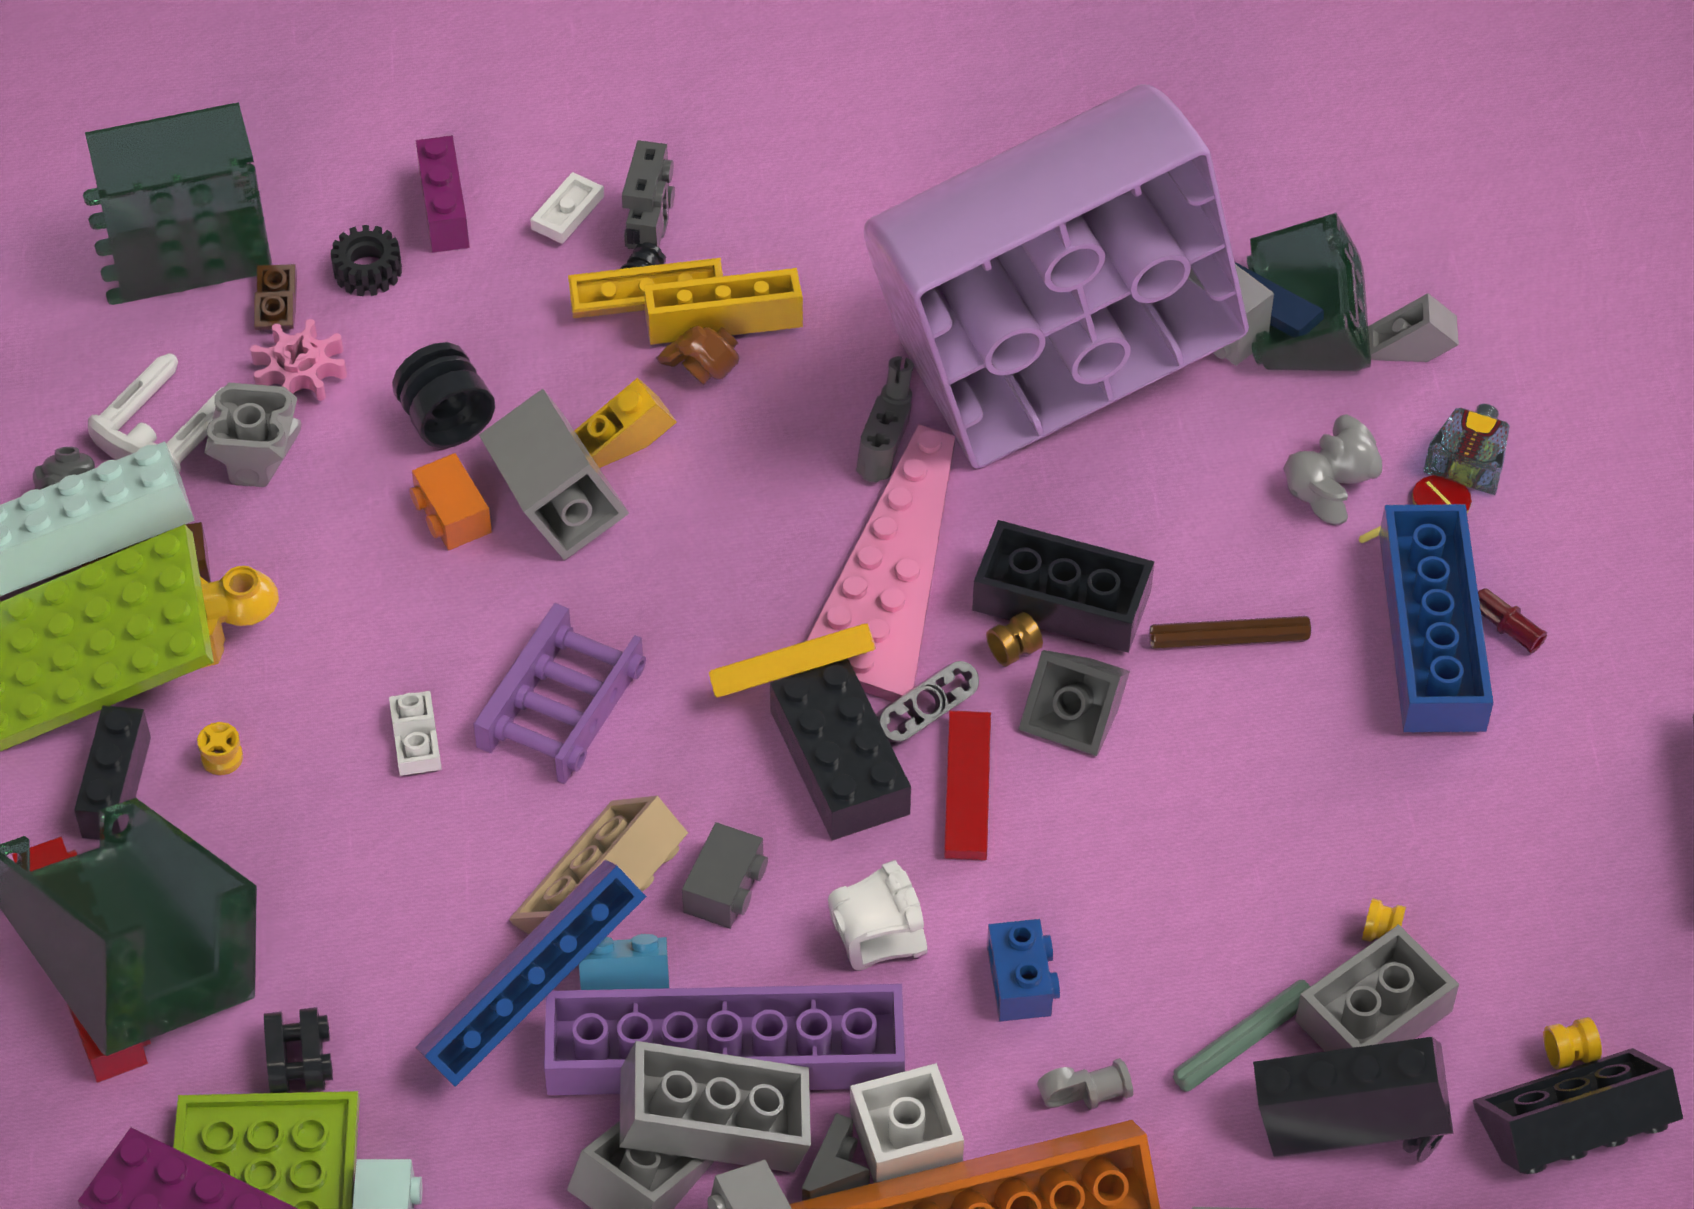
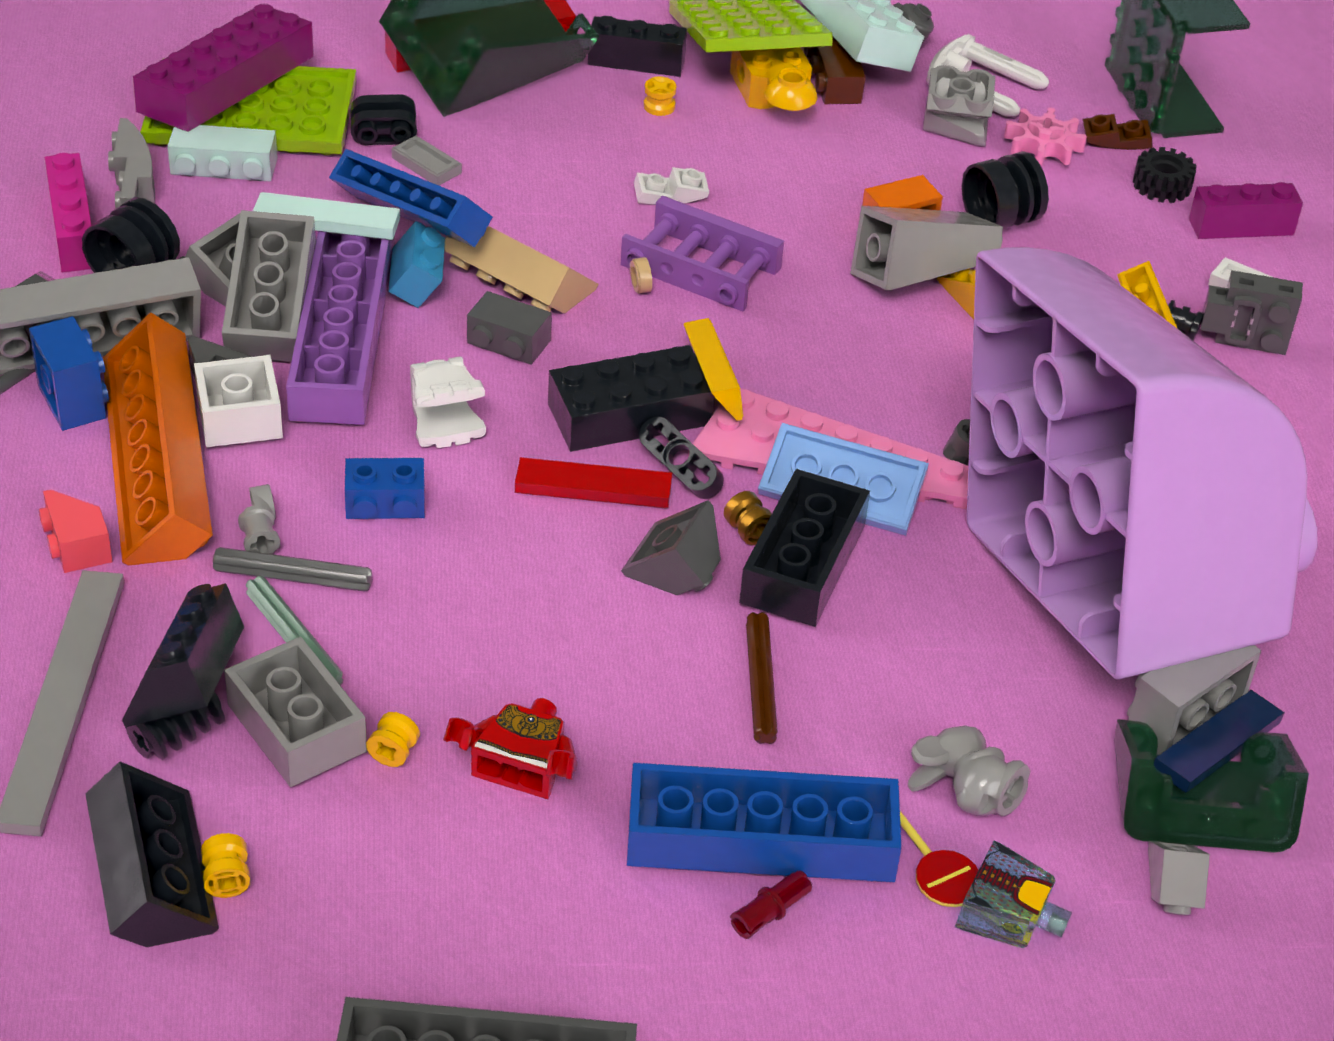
camera: 90 degrees right, 10 degrees down
(368, 1001) = (426, 160): none -> light grey tile
(581, 1056) = (335, 215): none -> light aqua tile
(608, 750) = (641, 275): none -> tan tile
(943, 560) = (891, 478): none -> light blue tile
(1150, 1050) = (292, 569): none -> dark grey axle
(1377, 808) = (518, 747): none -> red torso

